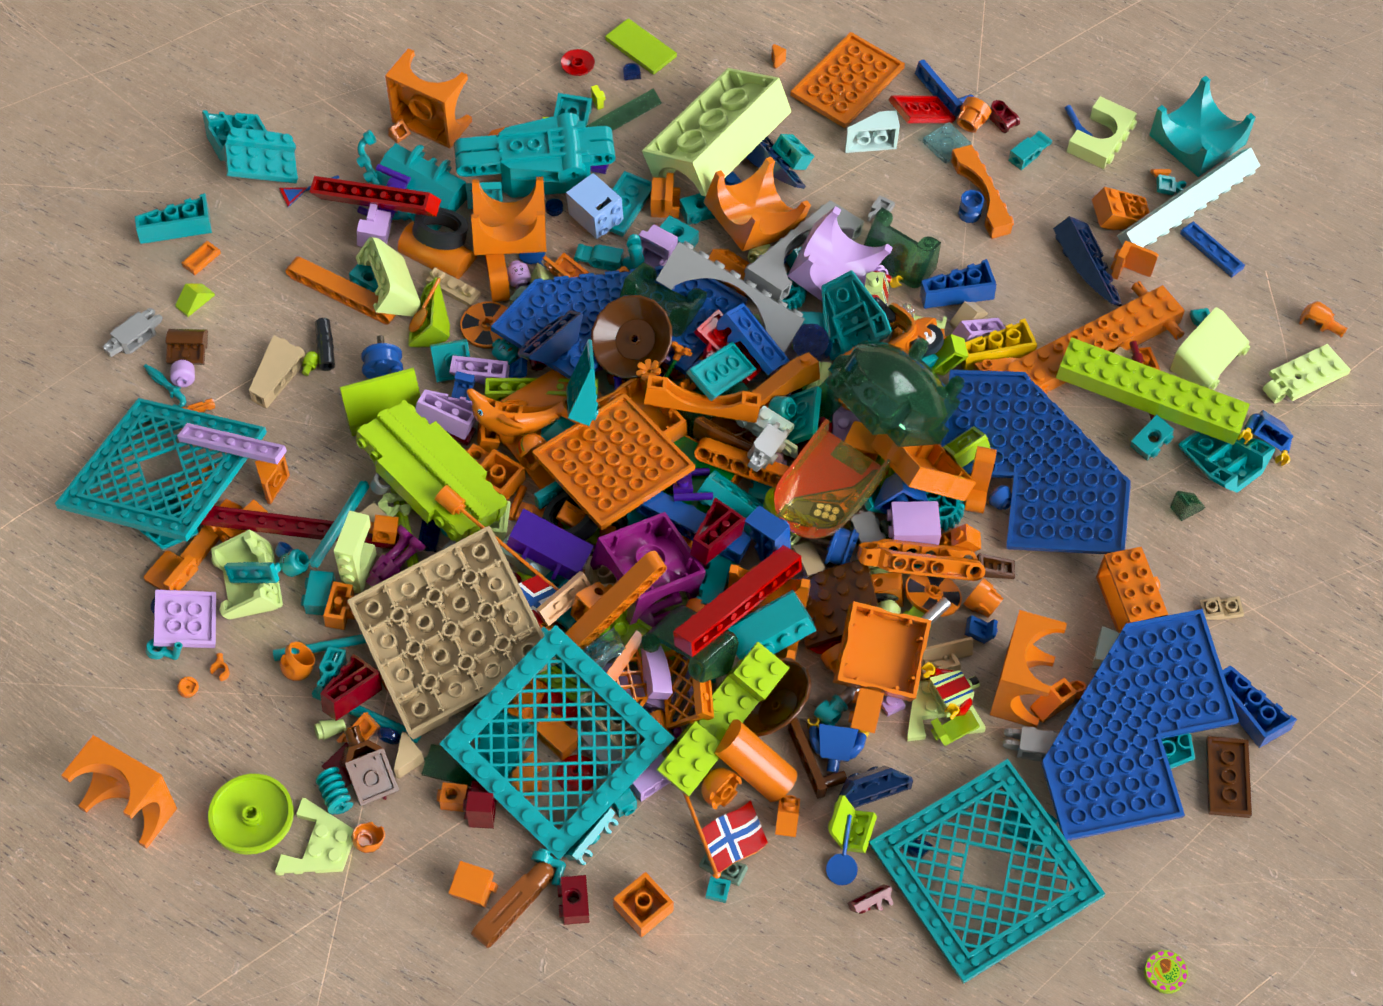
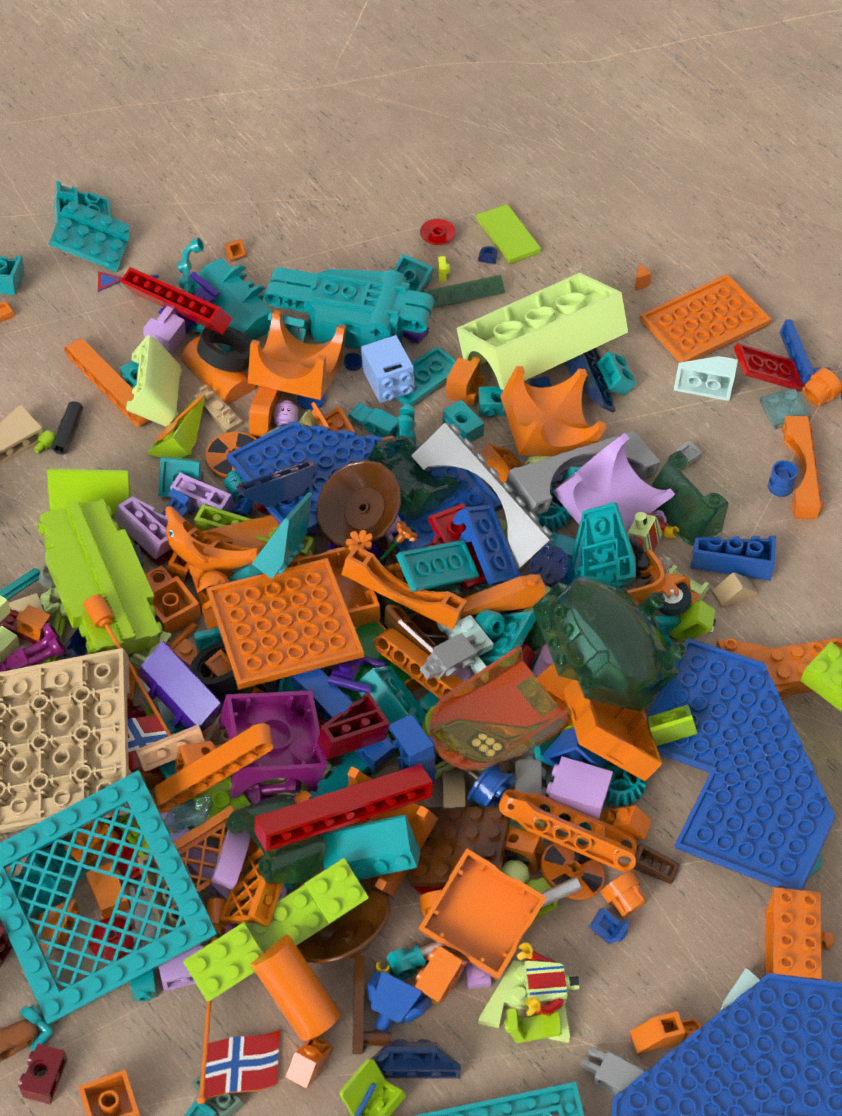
camera: 20 degrees right, 5 degrees down
(381, 359) = (110, 455): blue wheel -> none
(425, 105) = (264, 227): orange piece -> none
(591, 837) = (92, 1011): plate -> none
(657, 245) = (430, 421): lavender plate -> none
(719, 787) = (249, 1004): orange cylinder -> none
(947, 654) = (557, 942): tan bracket -> none
(975, 328) = (736, 608): lavender slope -> none
(981, 473) = (673, 759): orange beam -> none
(1001, 497) = (689, 790): blue cone -> none
(1007, 343) = (765, 629): yellow wedge -> none
(1015, 674) = (629, 971): orange piece -> none

